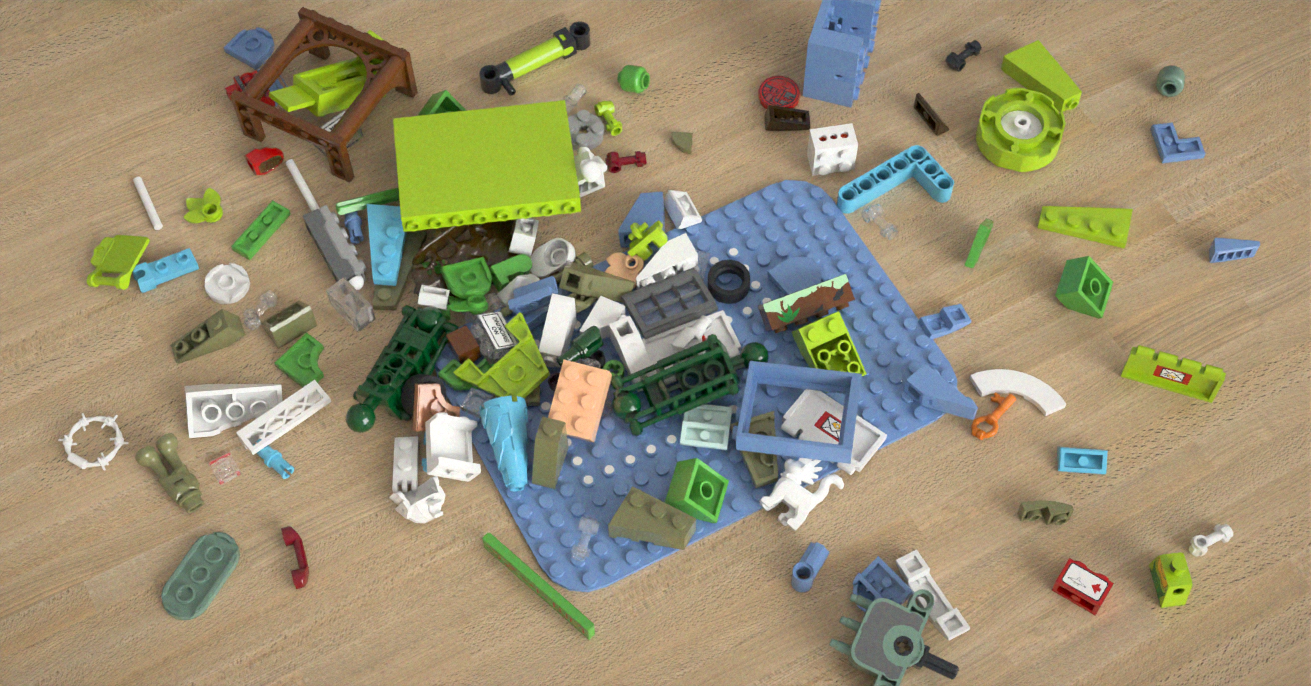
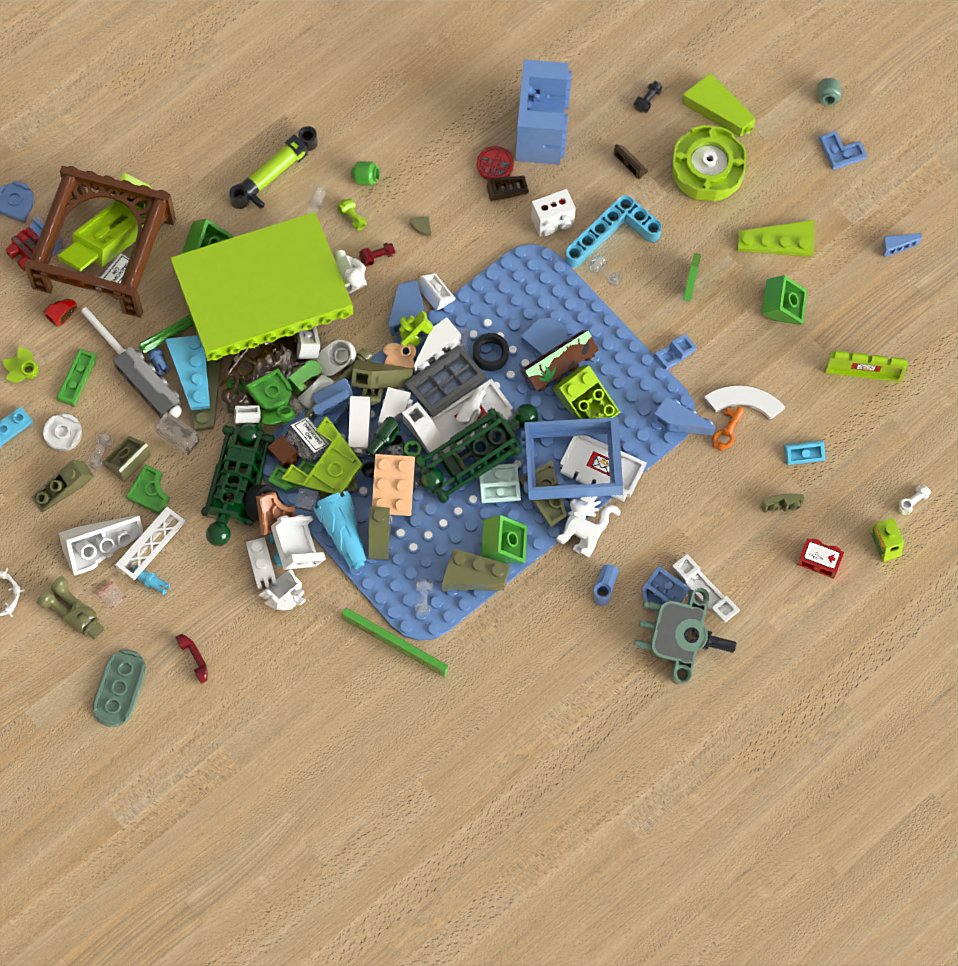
camera: 15 degrees left, 10 degrees up
(589, 122) = (342, 226): light grey plate -> none

